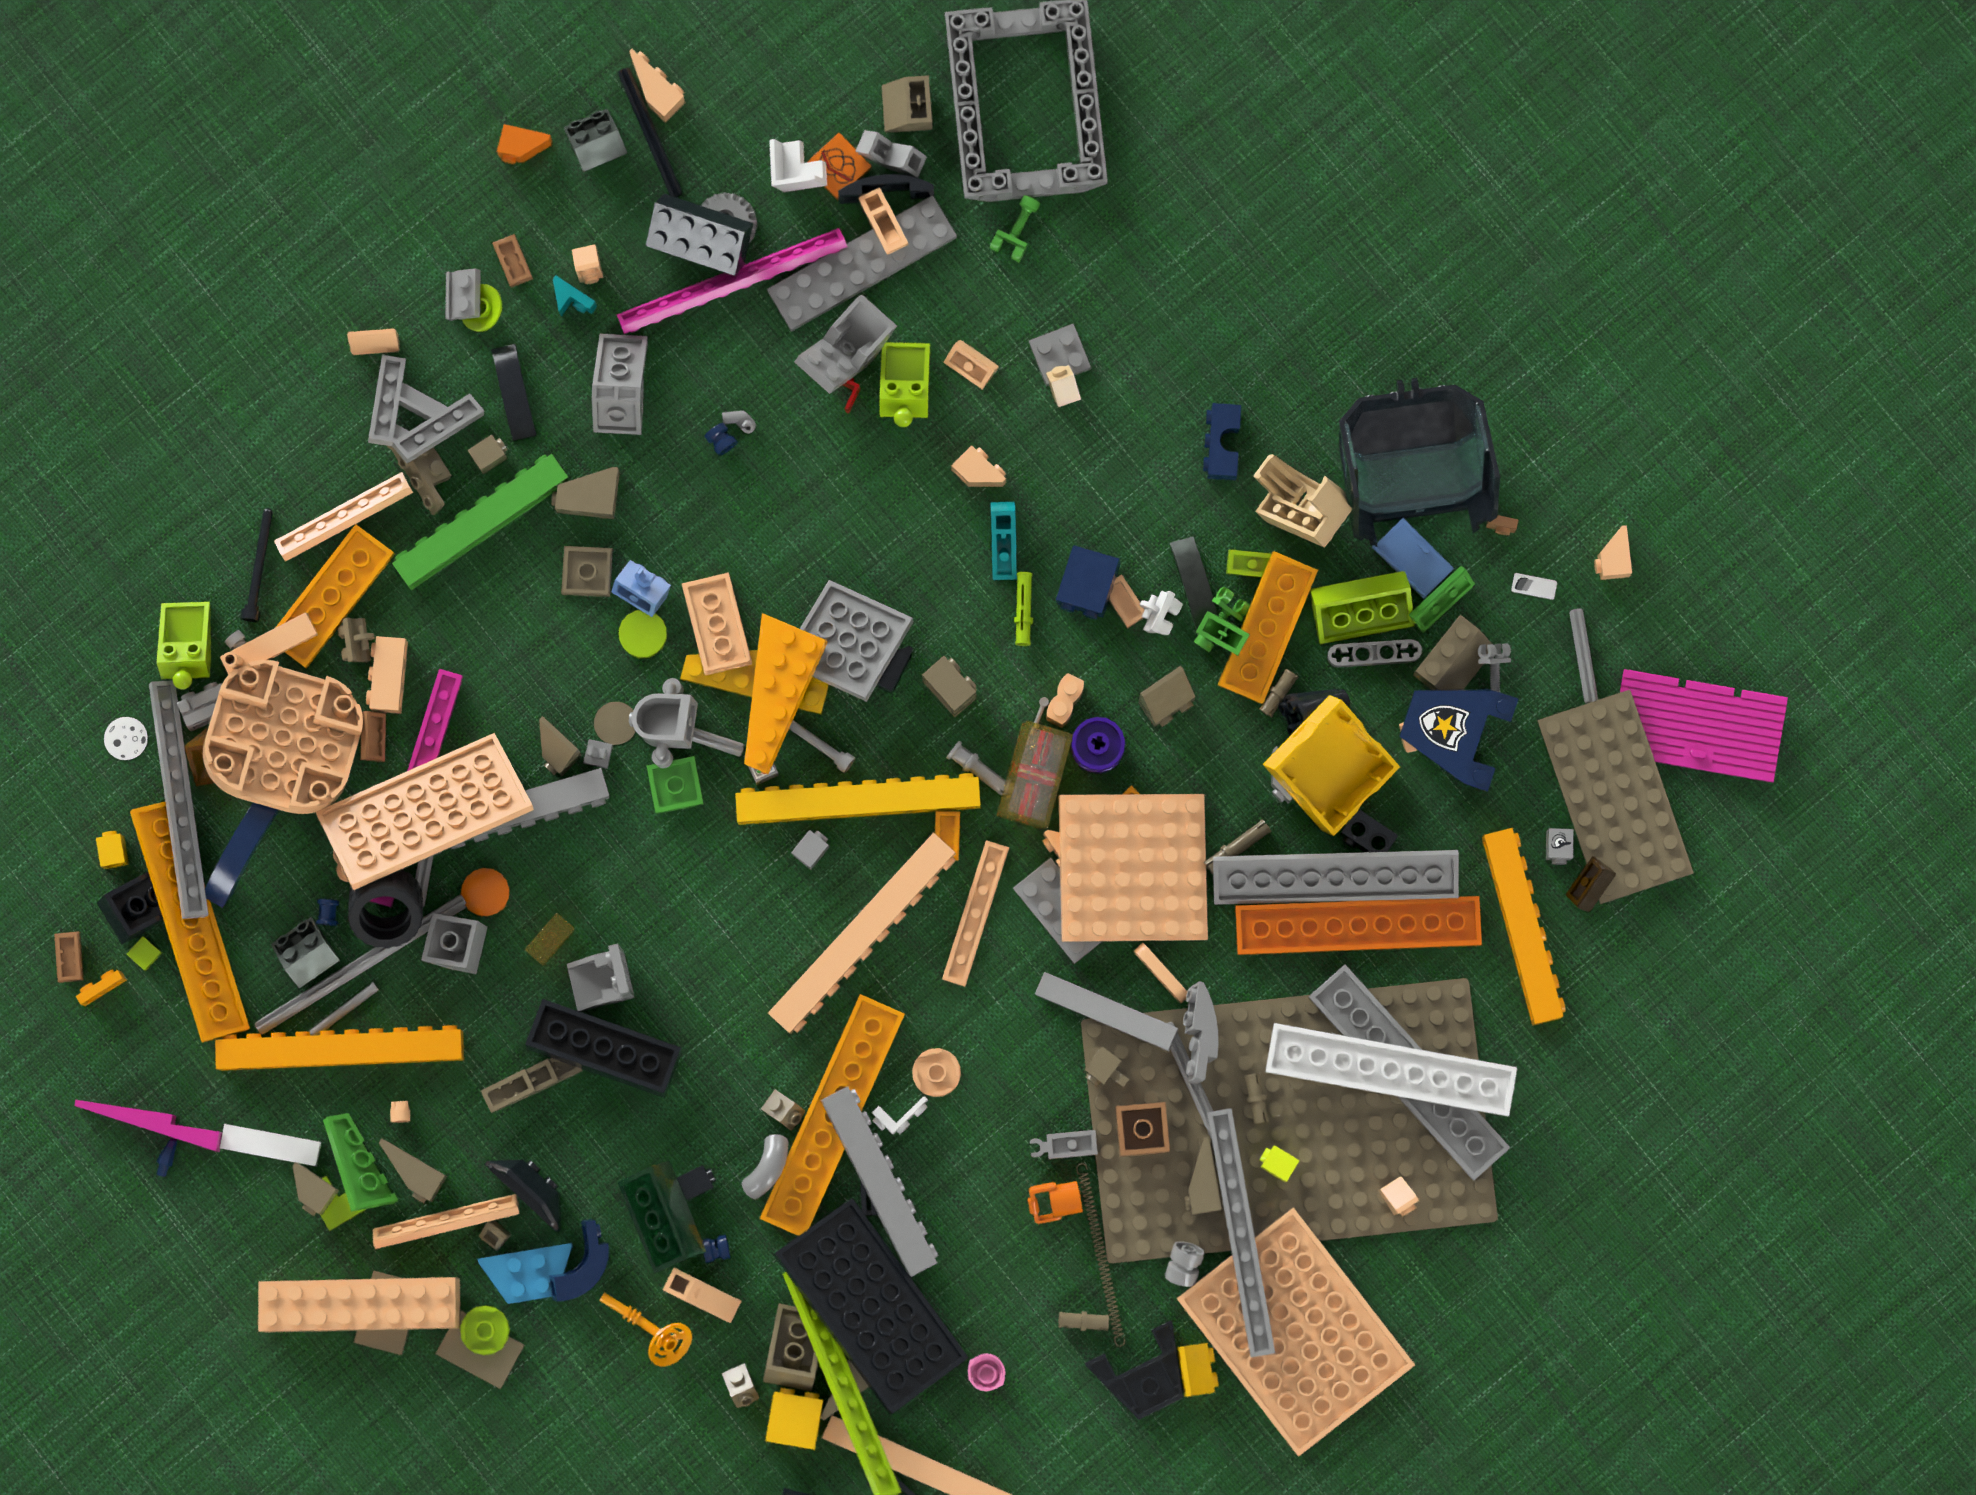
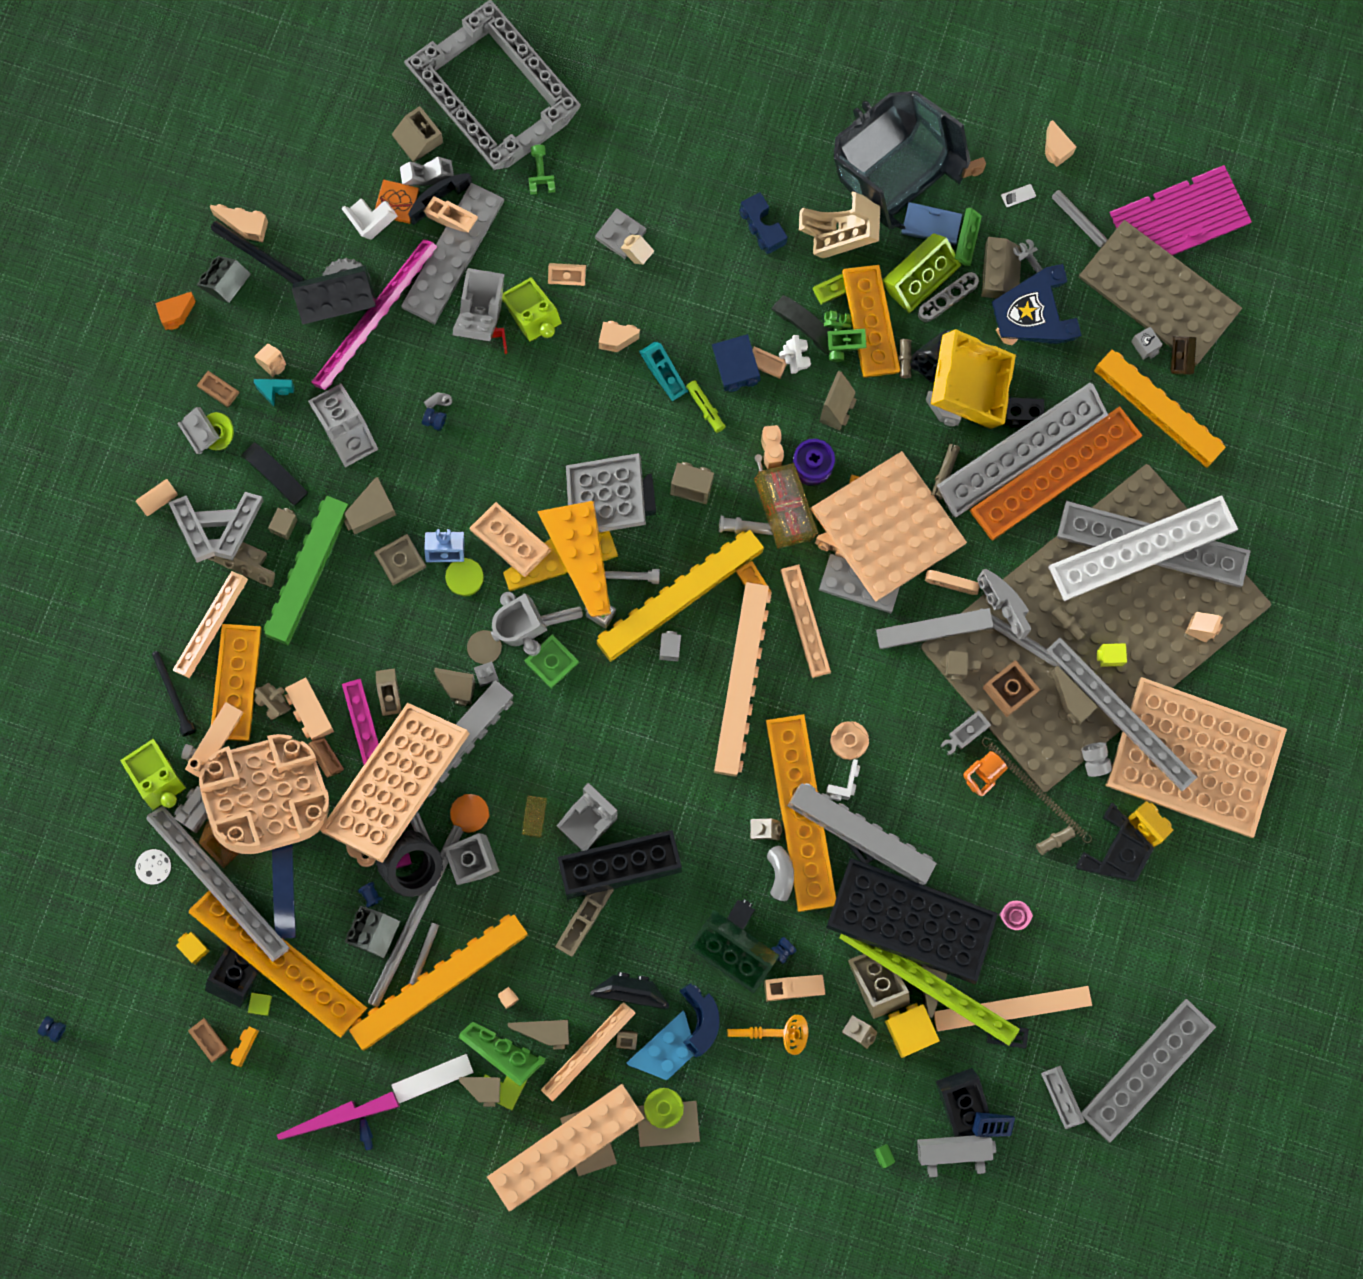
camera: 40 degrees left, 5 degrees down
(482, 708) = (388, 692): none -> dark tan slope

